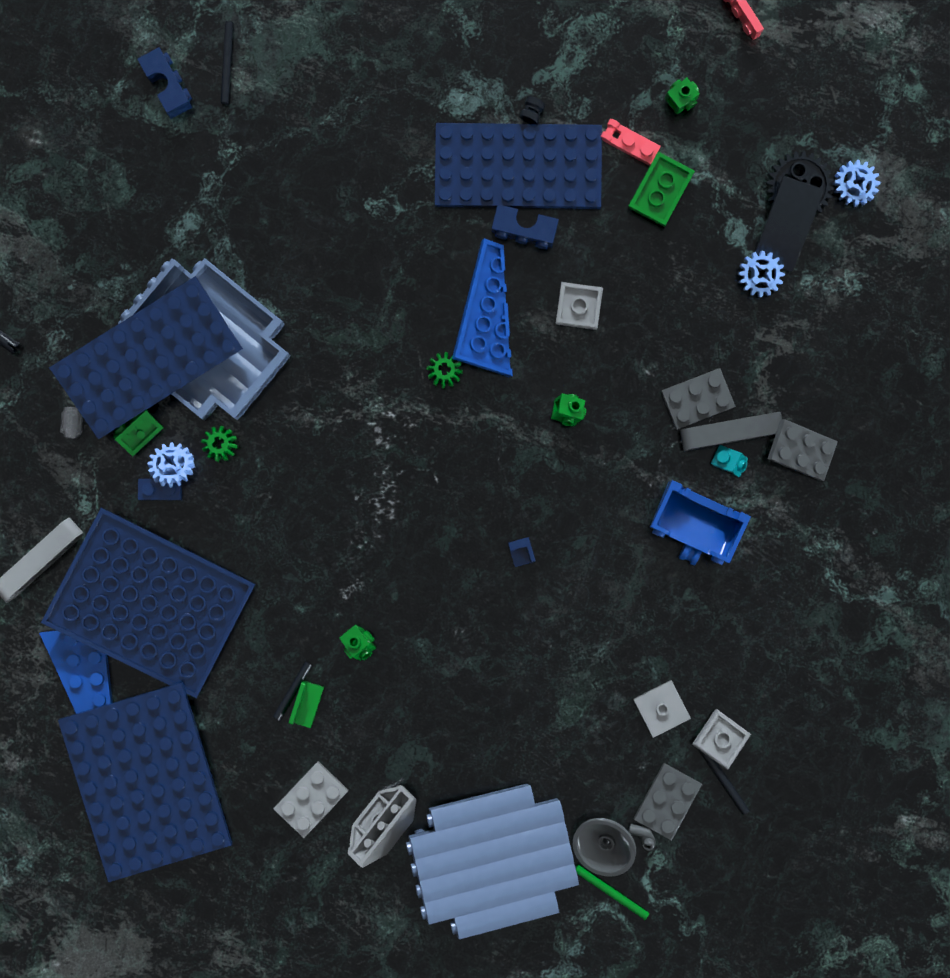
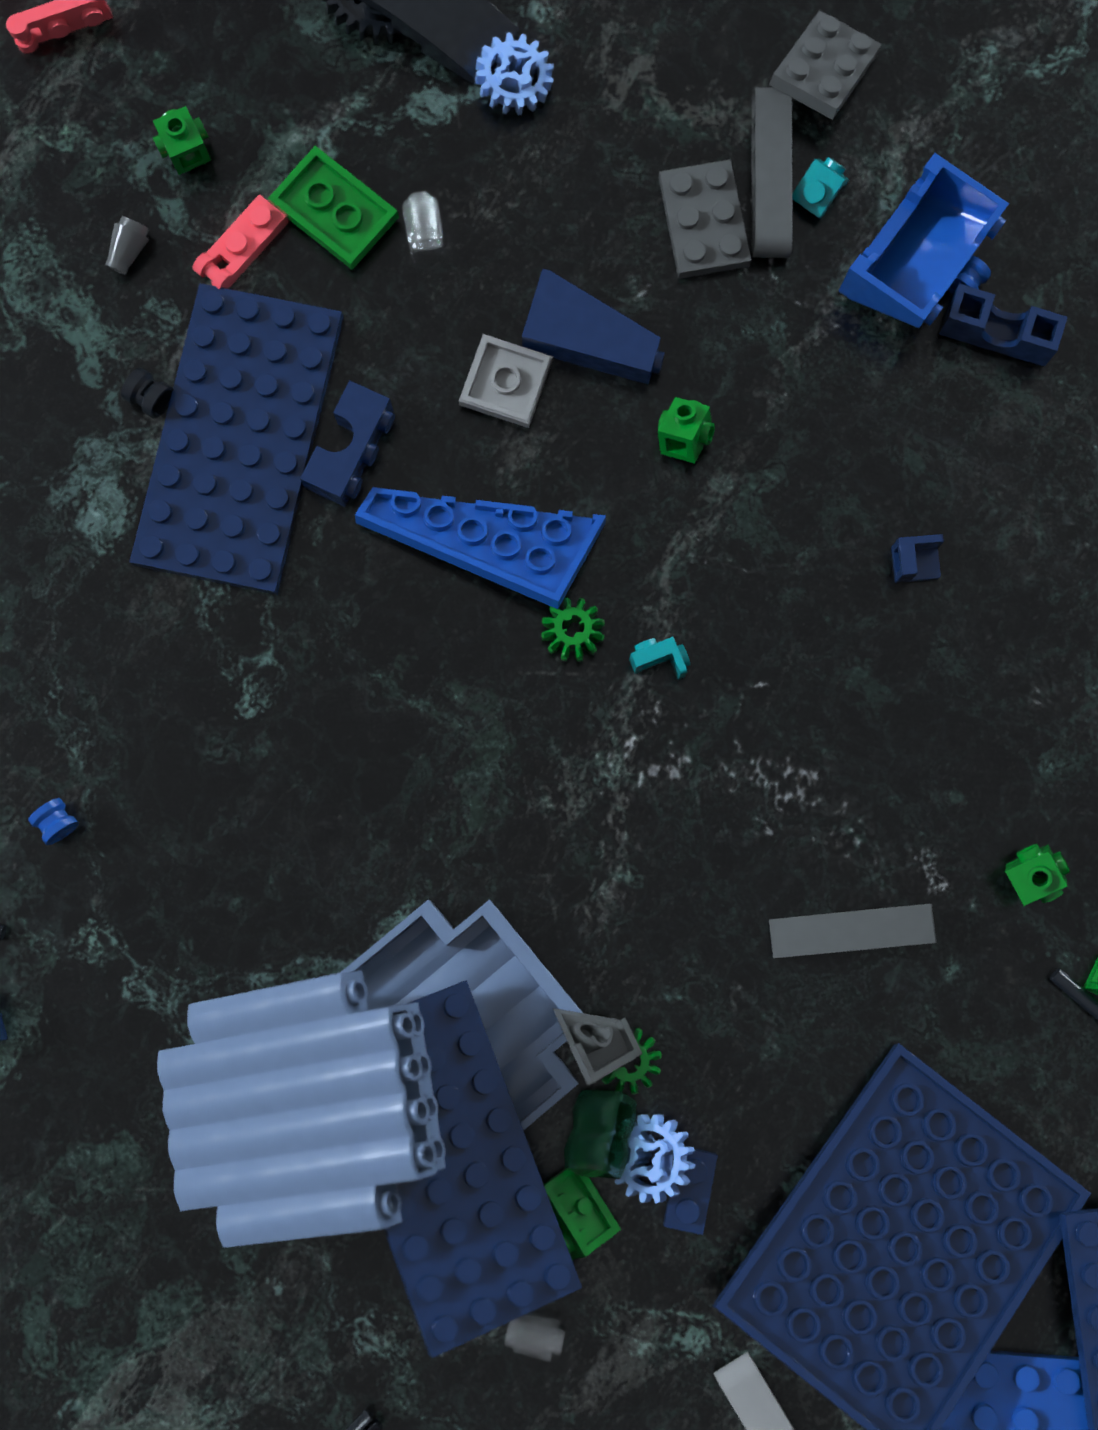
camera: 80 degrees left, 5 degrees down
(159, 275) = (300, 1110): none -> sand blue panel
(178, 435) = (600, 1134): none -> clear green brick
(222, 422) = (598, 1042): none -> dark grey slope
(287, 115) = (53, 821): none -> blue wheel
(309, 550) = (852, 931): none -> dark grey slope
(440, 415) = (652, 653): none -> teal bracket
(616, 341) = (588, 332): none -> dark blue slope
(617, 79) = (126, 244): none -> dark grey cone
(662, 240) = (422, 221): none -> clear brick
(663, 573) = (1025, 336): none -> dark blue arch

